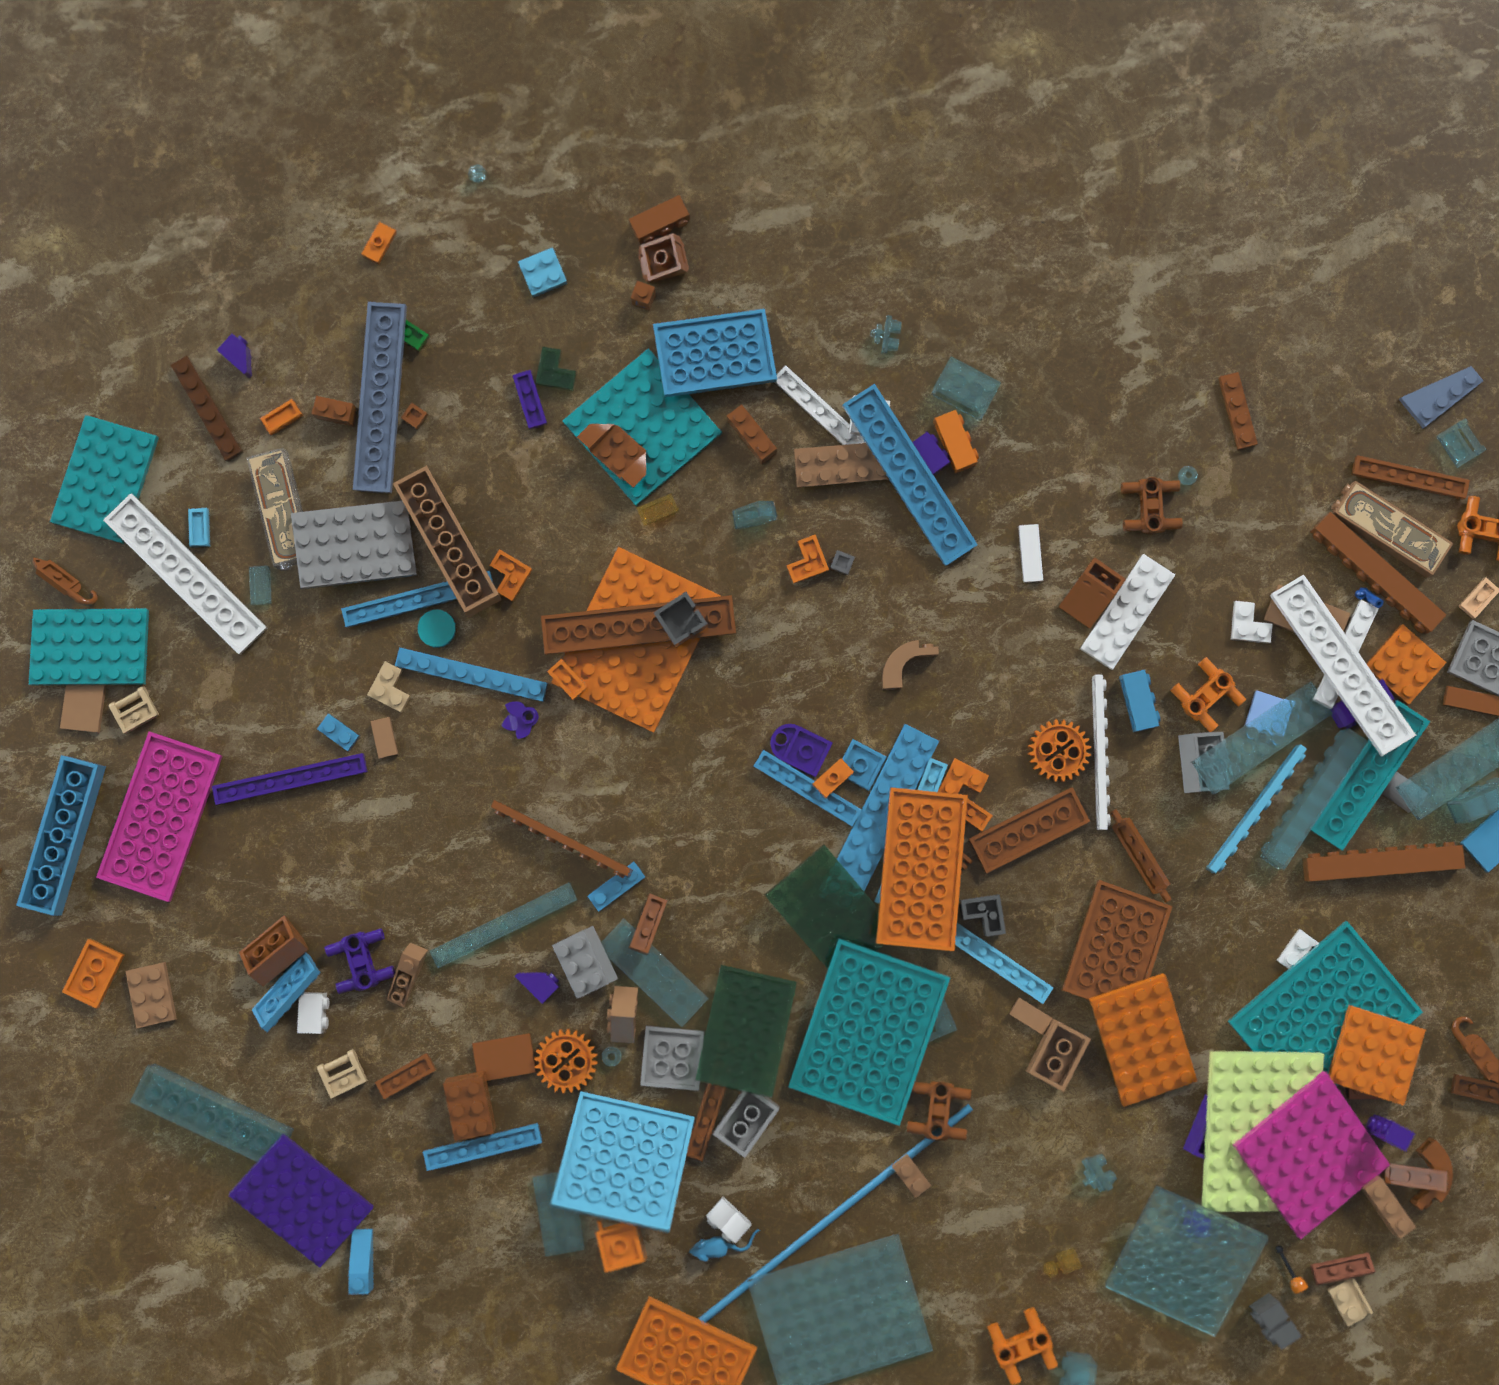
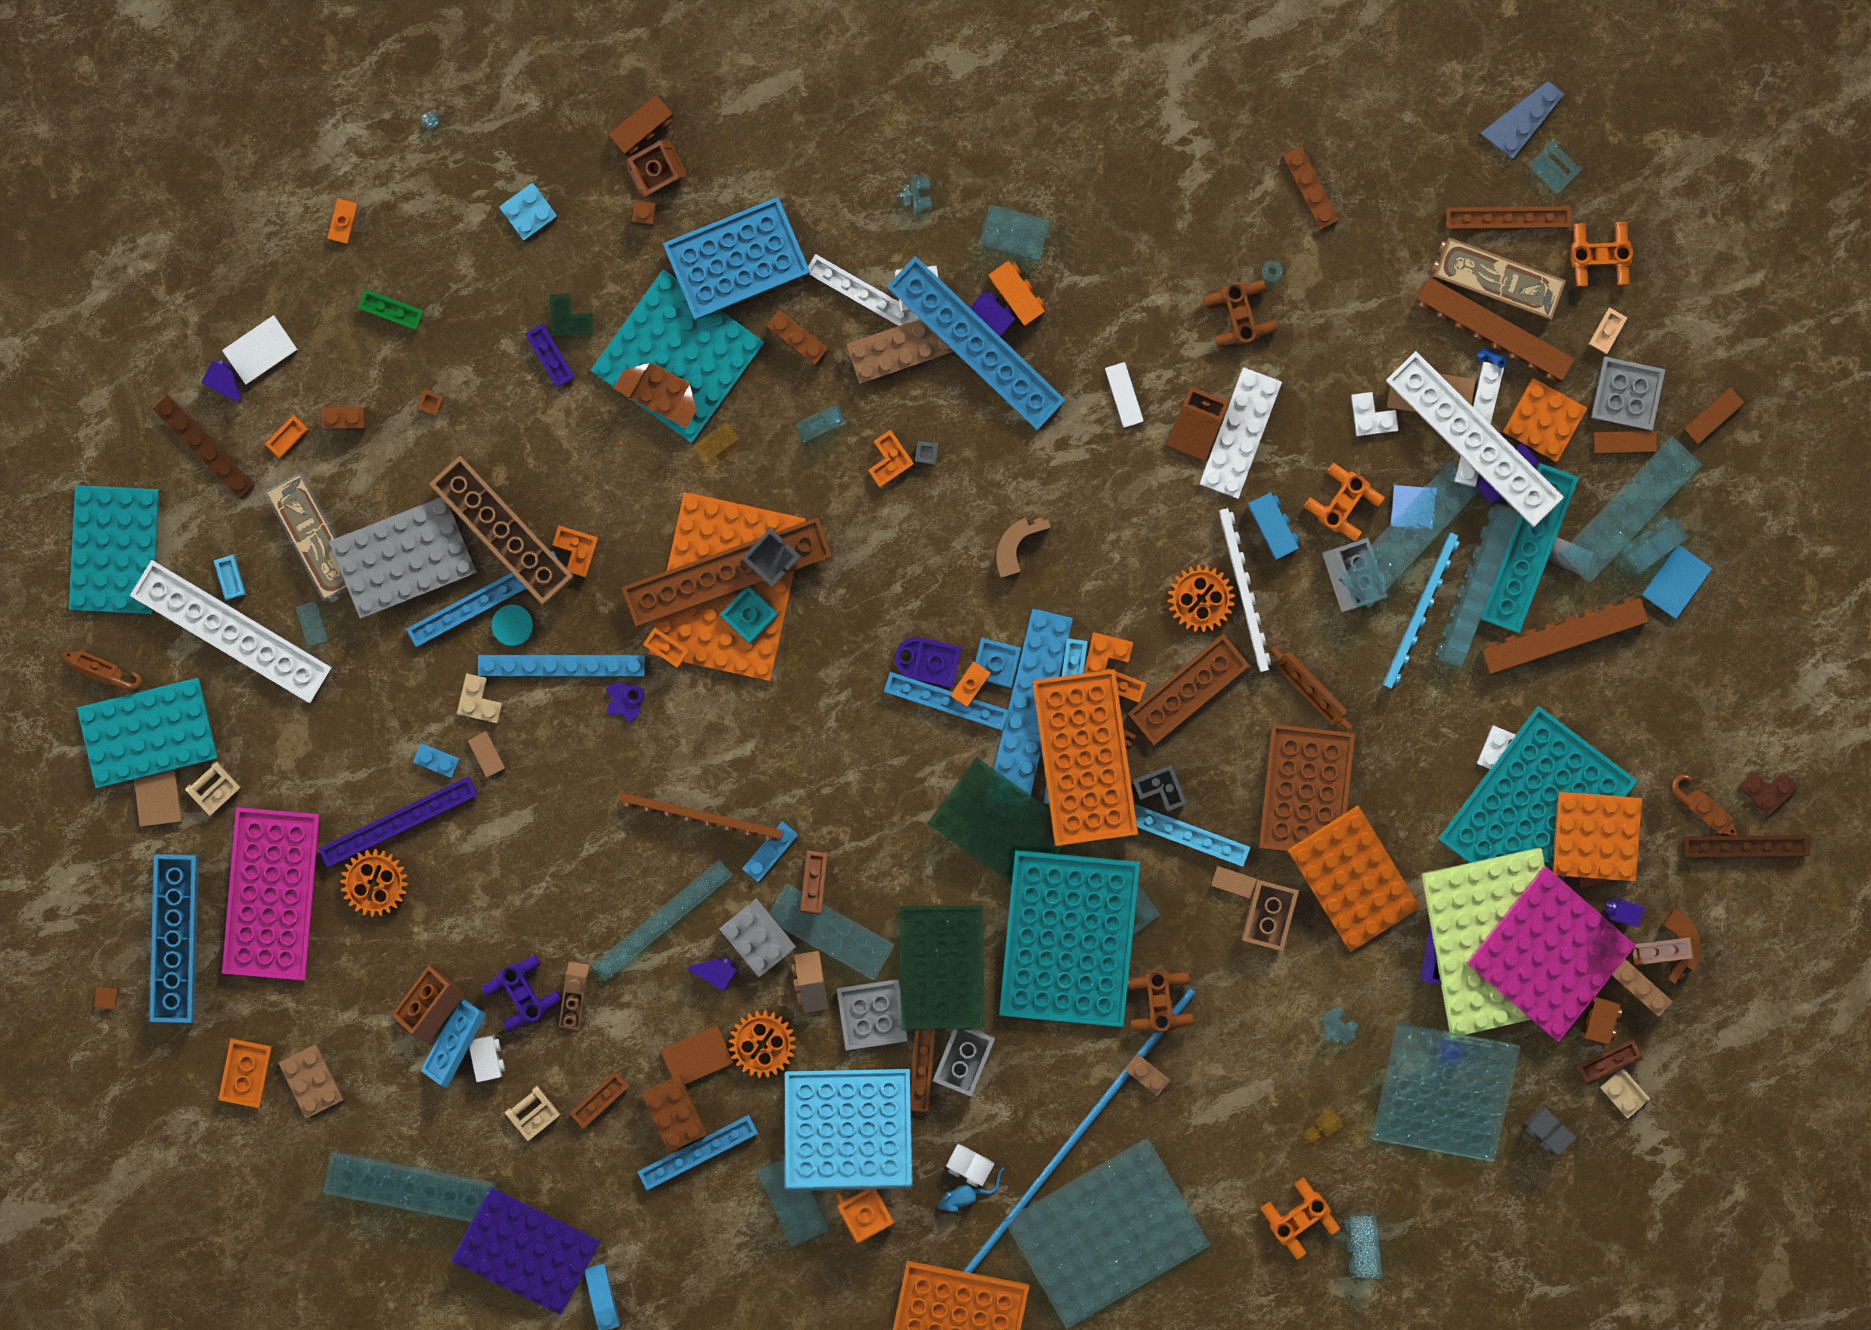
camera: 20 degrees left, 5 degrees up
(240, 819) = (356, 876): none -> orange gear
(278, 336) = (260, 350): none -> white tile
(379, 397) = (389, 392): sand blue plate -> none
(616, 1052) = (801, 1028): clear light blue plate -> none
(649, 668) = (748, 614): none -> teal tile
(1297, 1283) = (1567, 1087): hinge -> none
(1345, 1229) = (1601, 1020): none -> dark orange brick

